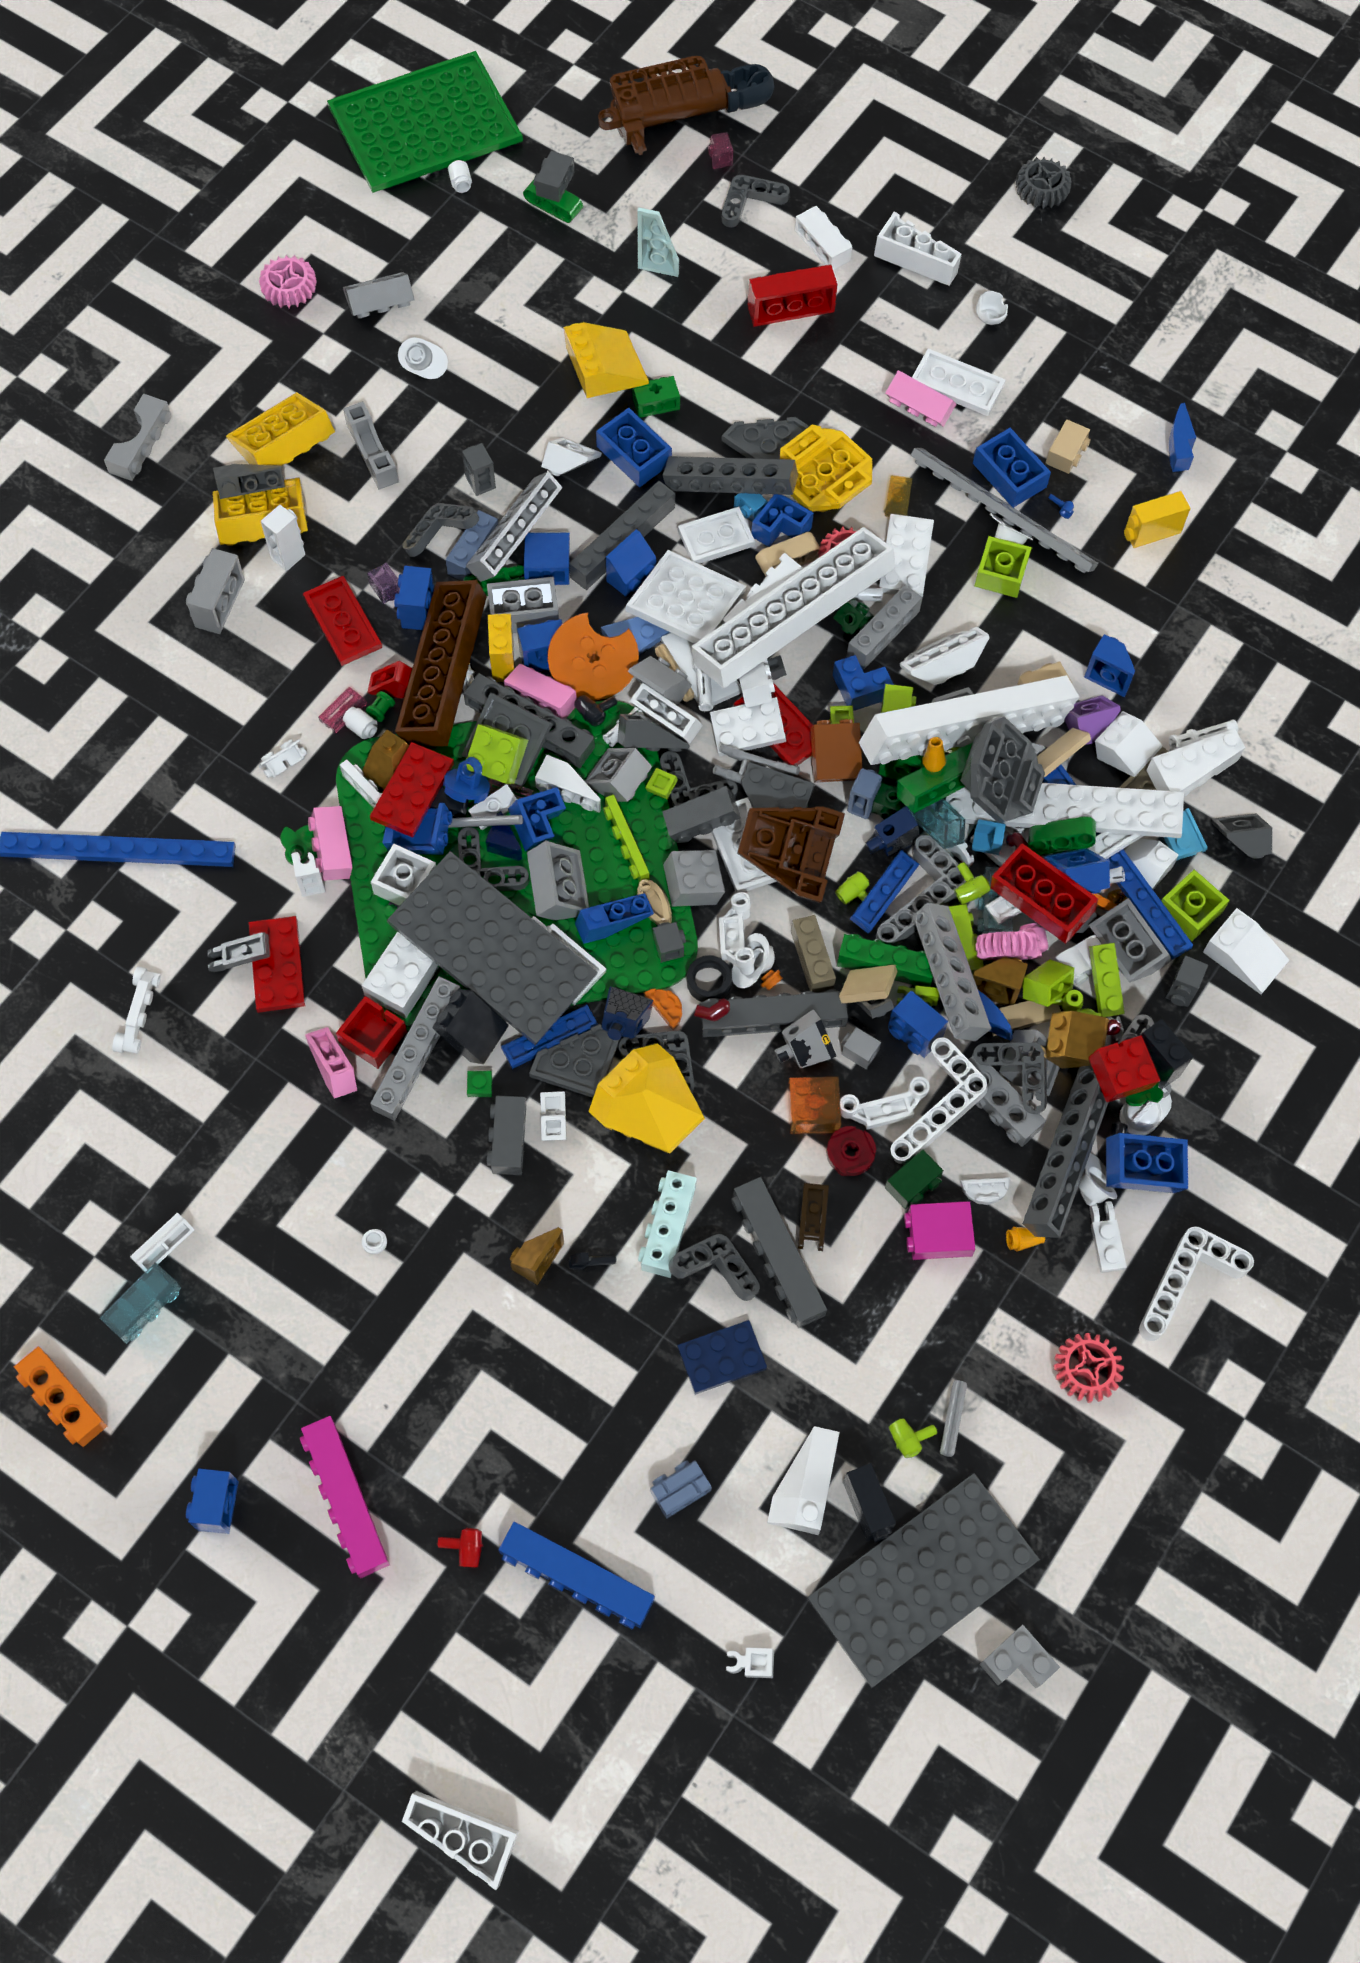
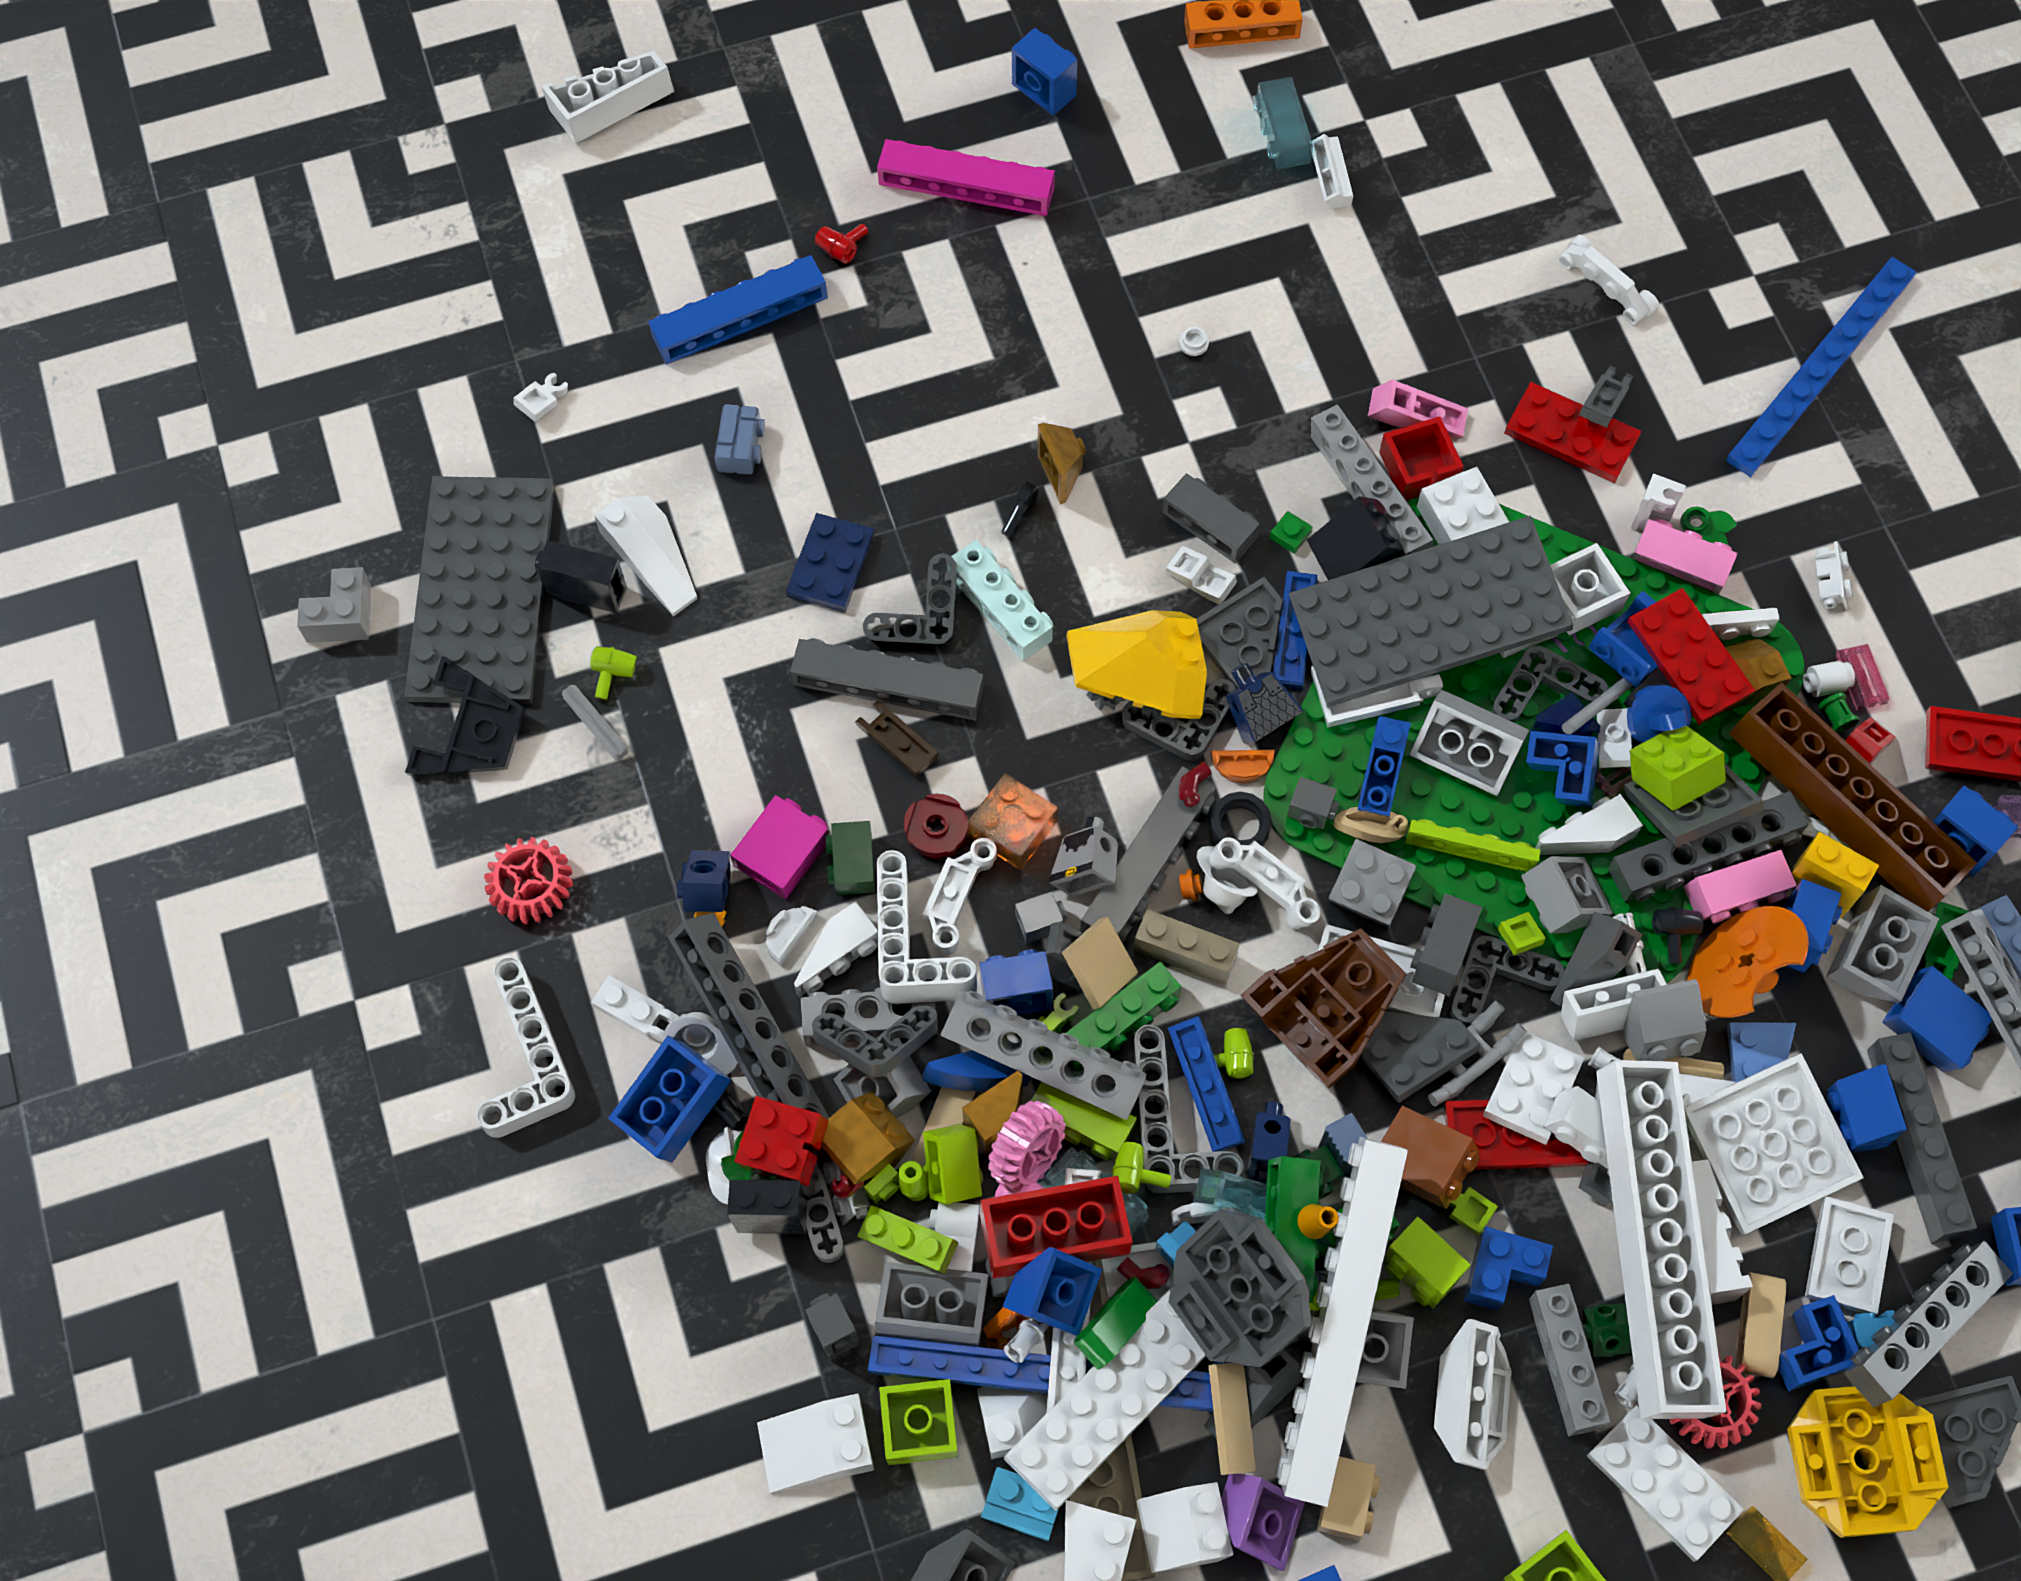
camera: 130 degrees right, 0 degrees up
(971, 1149) = (841, 942): none -> white slope
(990, 1256) = (705, 881): none -> dark blue brick
(1020, 1482) = (482, 730): none -> black wing

